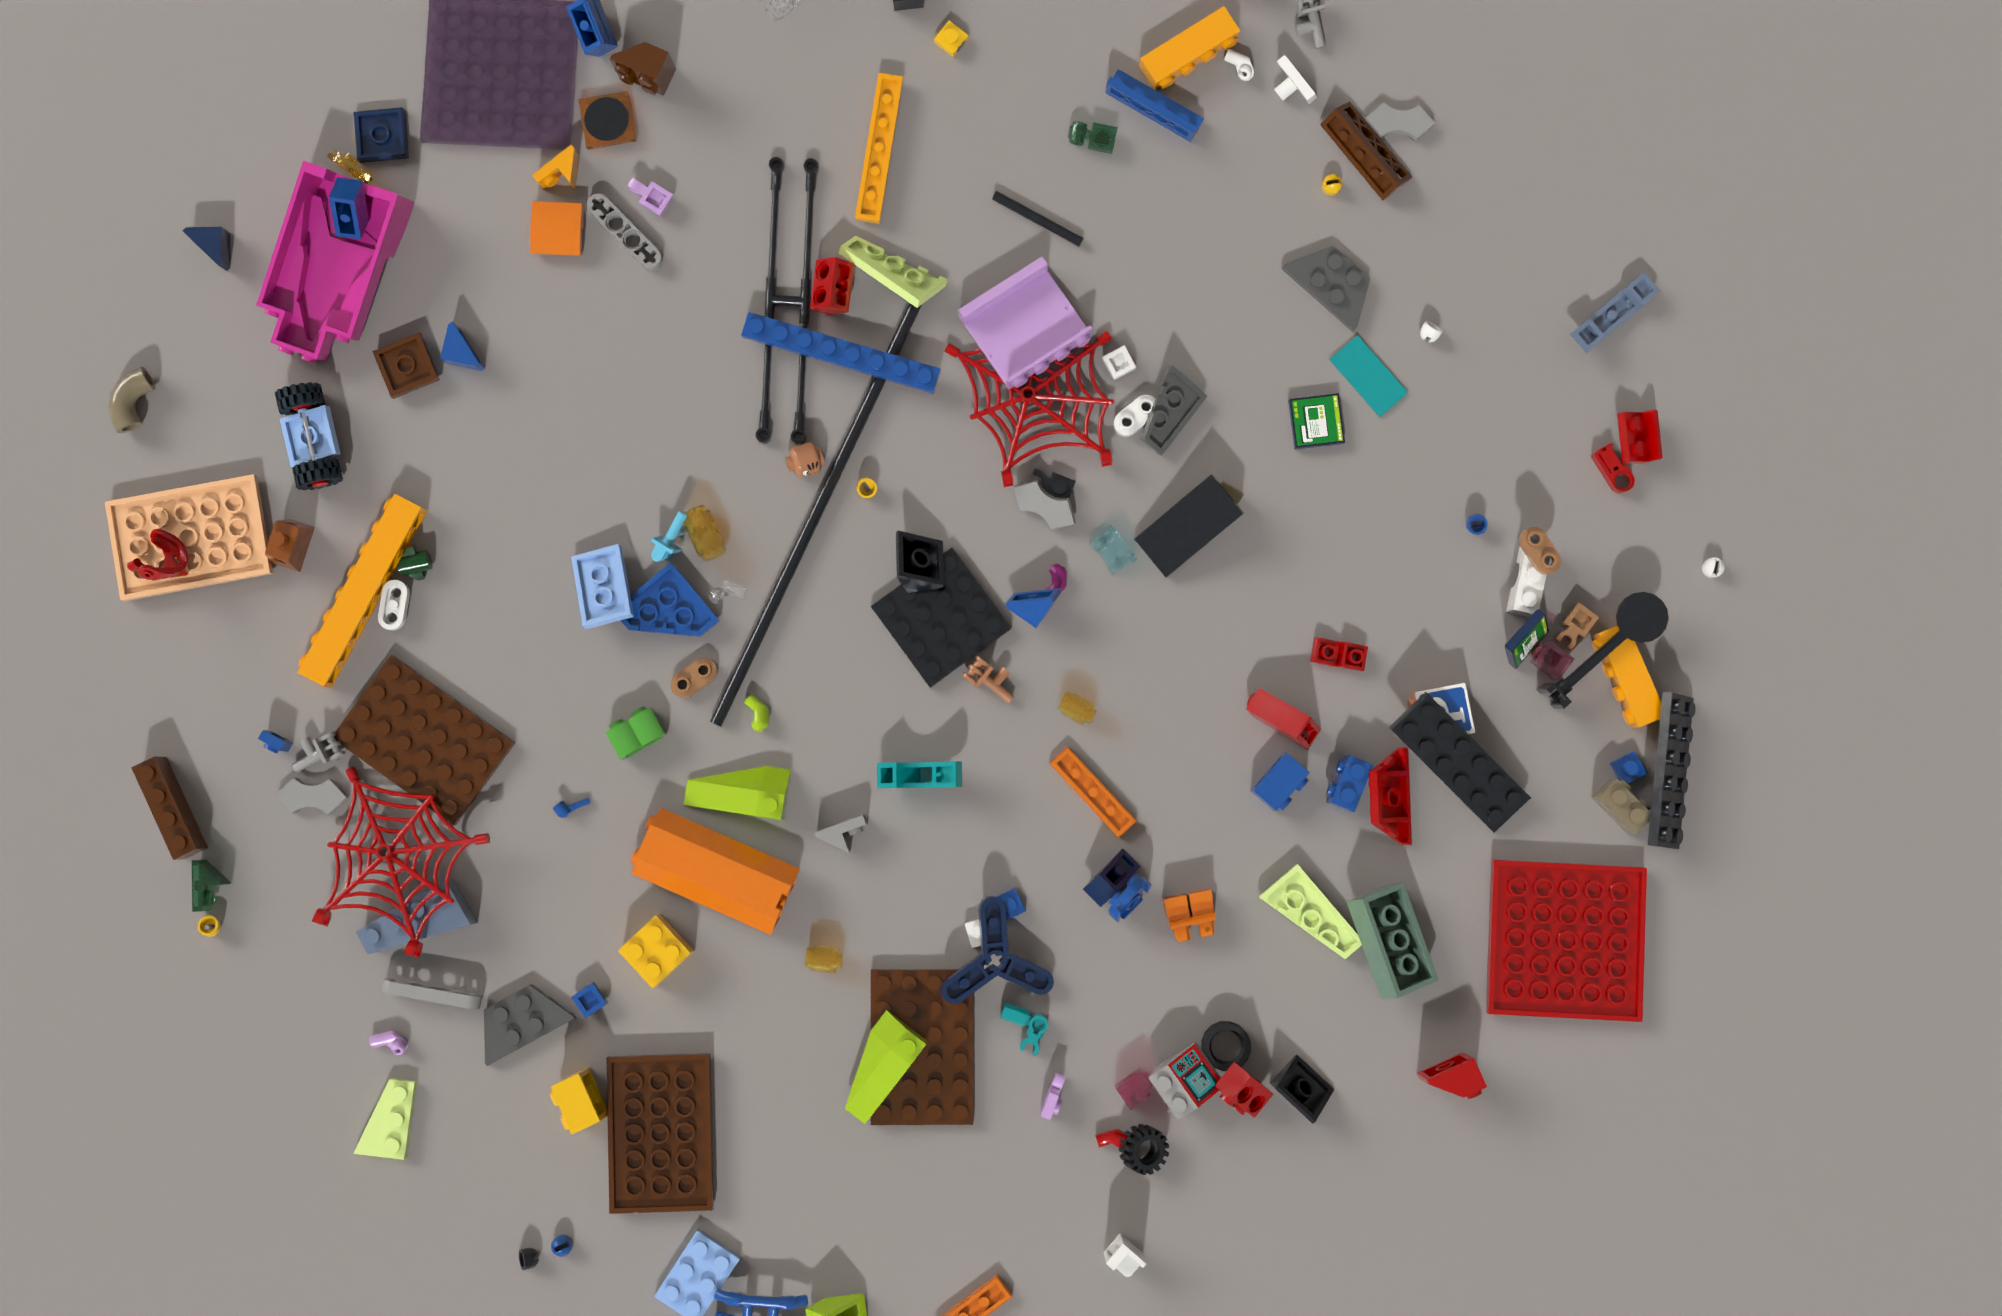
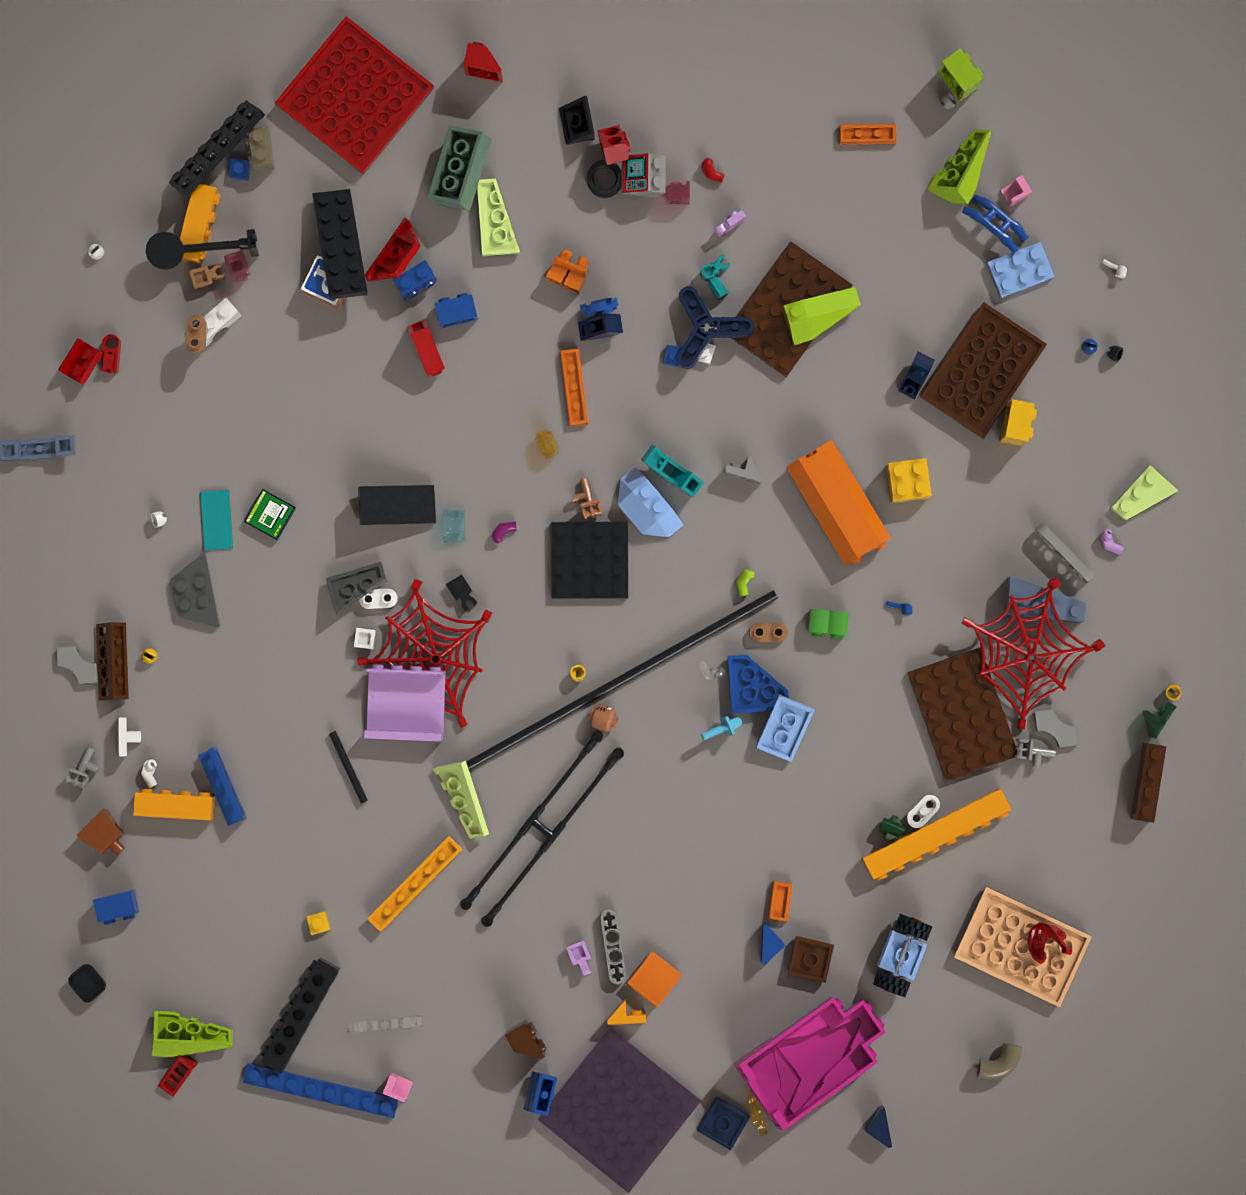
camera: 145 degrees left, 0 degrees up
(274, 741) = (1055, 778): blue plate -> none
(289, 543) = (960, 896): dark orange torso -> none
(349, 208) = (776, 1082): blue brick -> none
(481, 403) = (780, 901): none -> orange tile
(520, 1021) = (1022, 498): dark grey wing -> none
(589, 999) = (970, 480): blue plate -> none
(607, 120) = (573, 1028): tile -> none
(704, 533) = (702, 707): clear yellow piece -> none
(729, 1074) = (916, 375): none -> dark blue slope
(748, 792) = (783, 536): lime wedge -> none
(823, 959) = (810, 403): clear yellow brick -> none
(832, 286) = (508, 815): red brick -> none
(841, 352) = (533, 768): blue plate -> none
(919, 562) = (578, 601): black slope -> none
(922, 717) = (646, 506): none -> light blue wedge
(1033, 605) = (527, 525): blue slope -> none
(1034, 498) = (478, 590): light grey tile -> none
(1100, 138) = (271, 789): clear green plate -> none
(1124, 1256) = (755, 100): white panel -> none
(1154, 1156) = (701, 161): black tyre -> none
(1339, 654) = (363, 362): red slope -> none
(1476, 529) = (222, 378): blue hinge -> none
(1526, 638) = (243, 288): tile -> none

